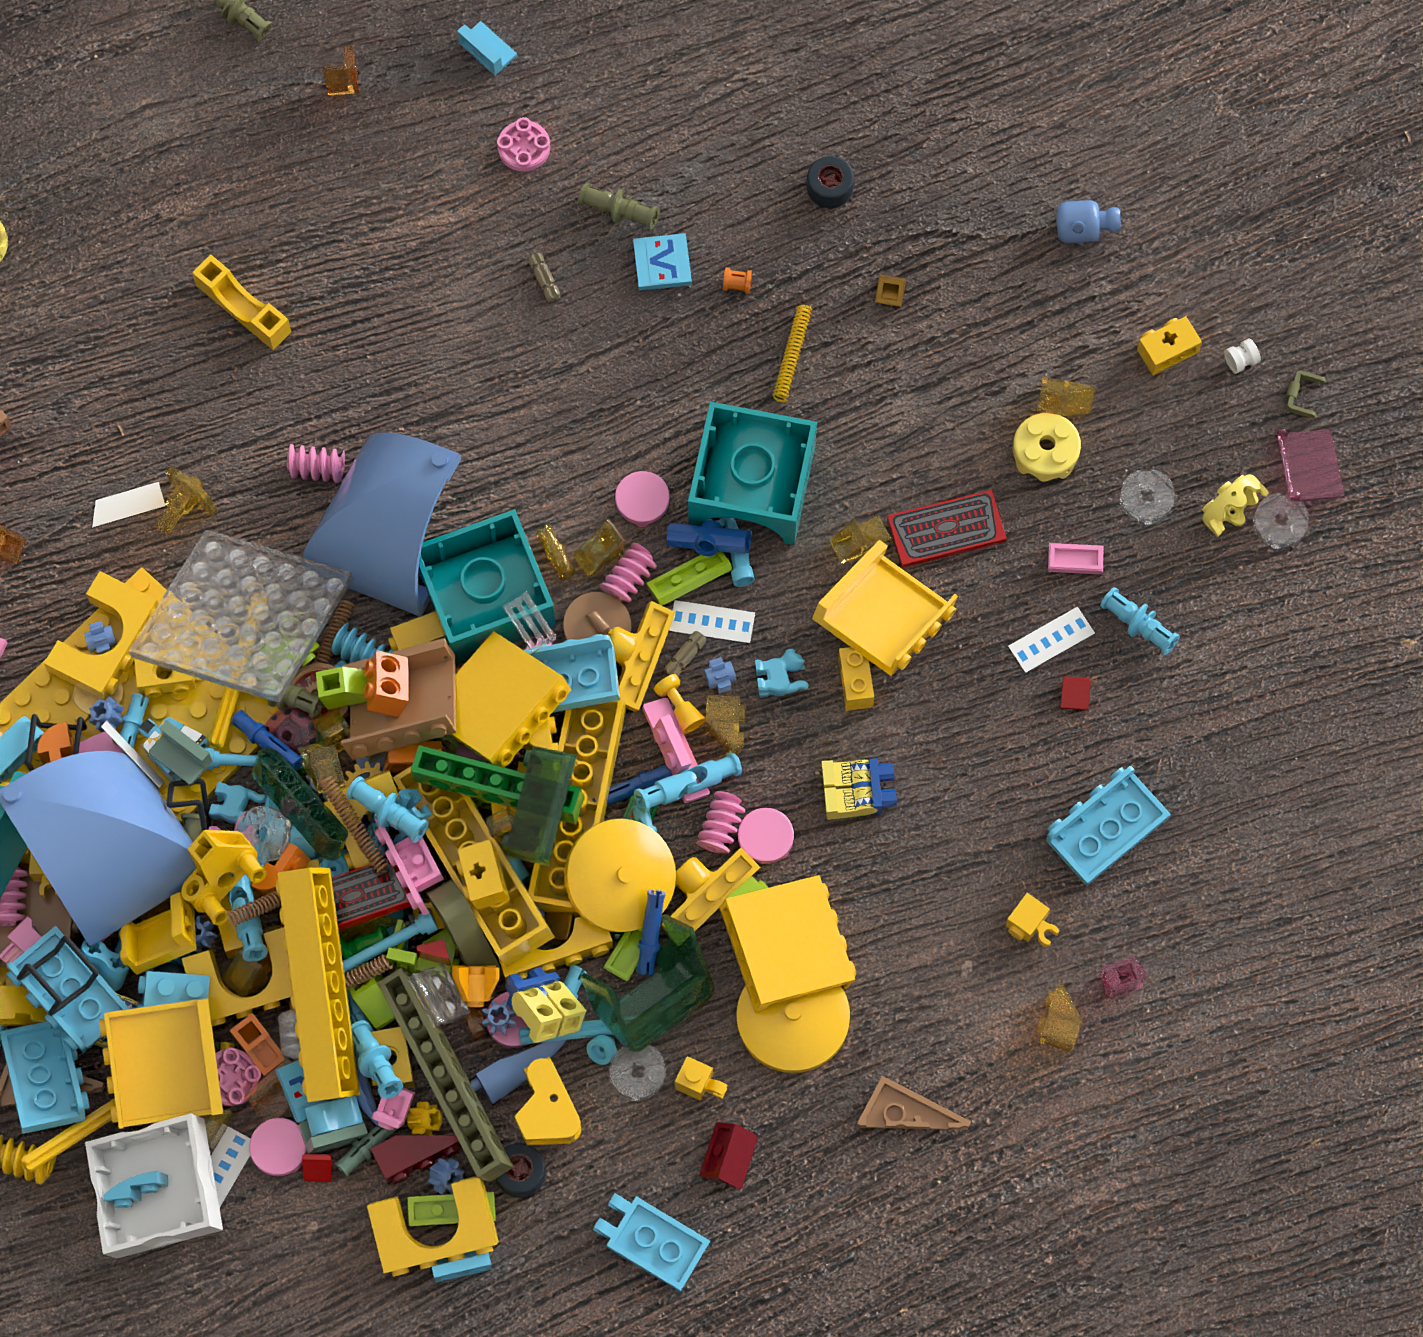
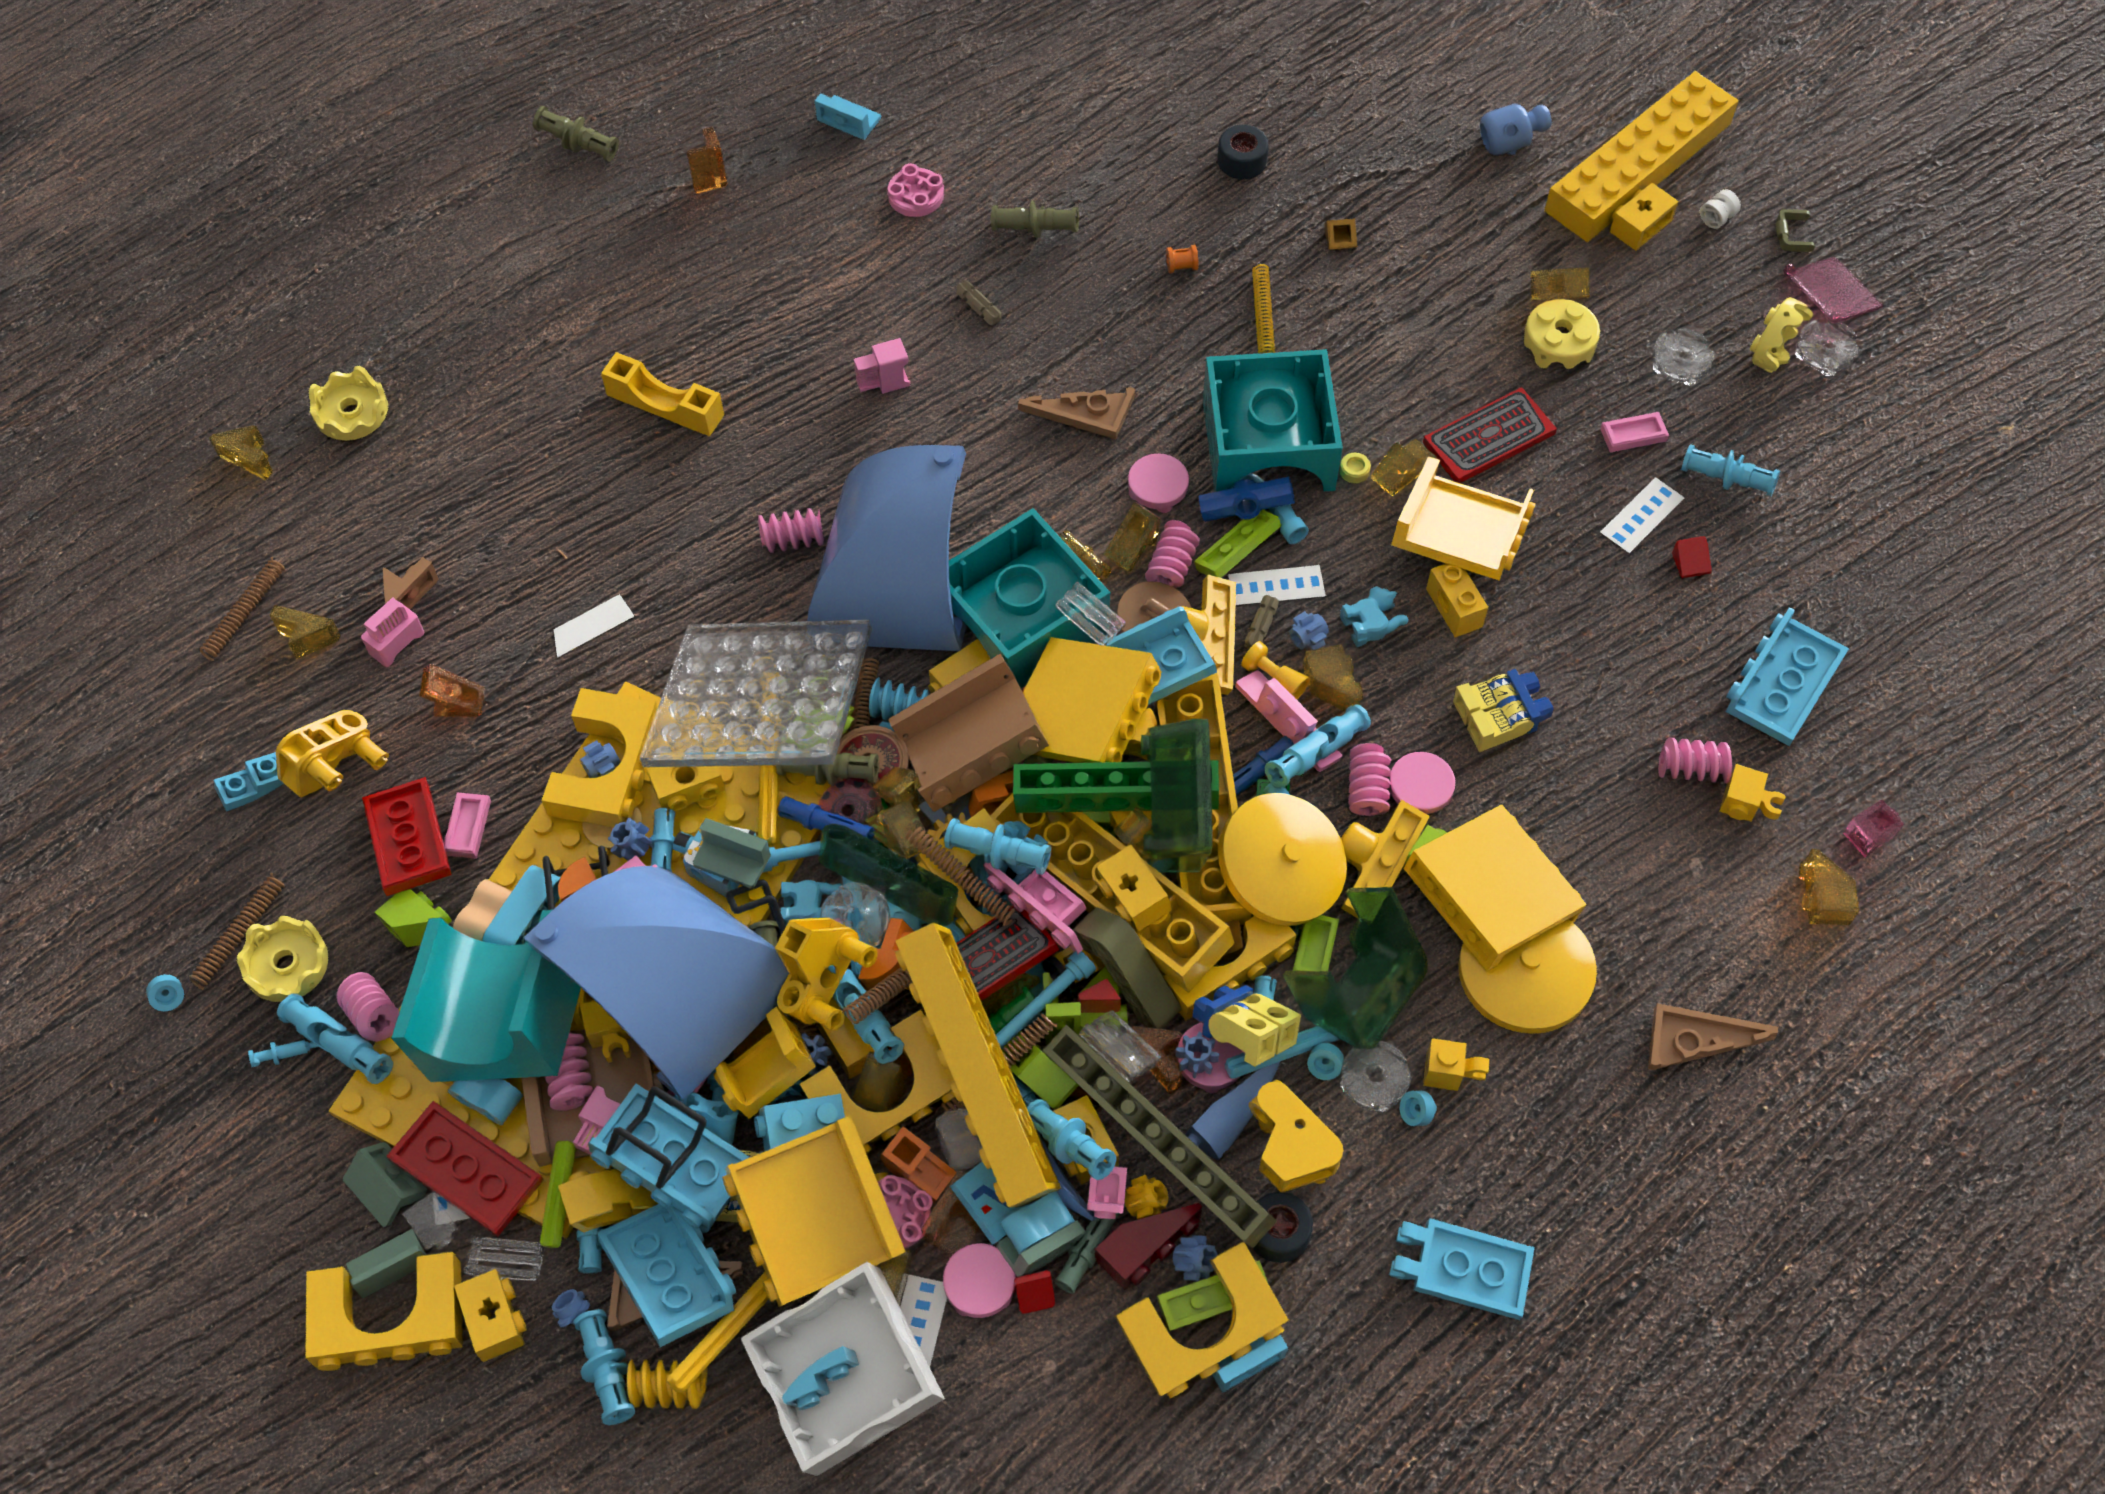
camera: 15 degrees left, 10 degrees down
(133, 754) = (674, 871): white sticker -> none
(185, 496) = (655, 592): clear yellow piece -> none
(341, 687) = (903, 736): lime slope -> none
(386, 683) = (950, 718): orange brick -> none
(440, 326) = (883, 367): none -> bright pink piece
(475, 983) = (1159, 1019): light orange brick -> none
(607, 414) = (1087, 411): none -> medium nougat wing
(649, 941) = (1338, 913): blue pin -> none
(660, 1107) = (1417, 1108): none -> medium azure tile
(662, 262) = (1097, 261): medium azure tile -> none
(728, 1154) = (1515, 1141): dark red panel -> none
(818, 528) = (1355, 467): none -> light yellow tile
(998, 878) = (1697, 758): none -> bright pink piece
(1193, 280) = (1641, 155): none -> yellow brick

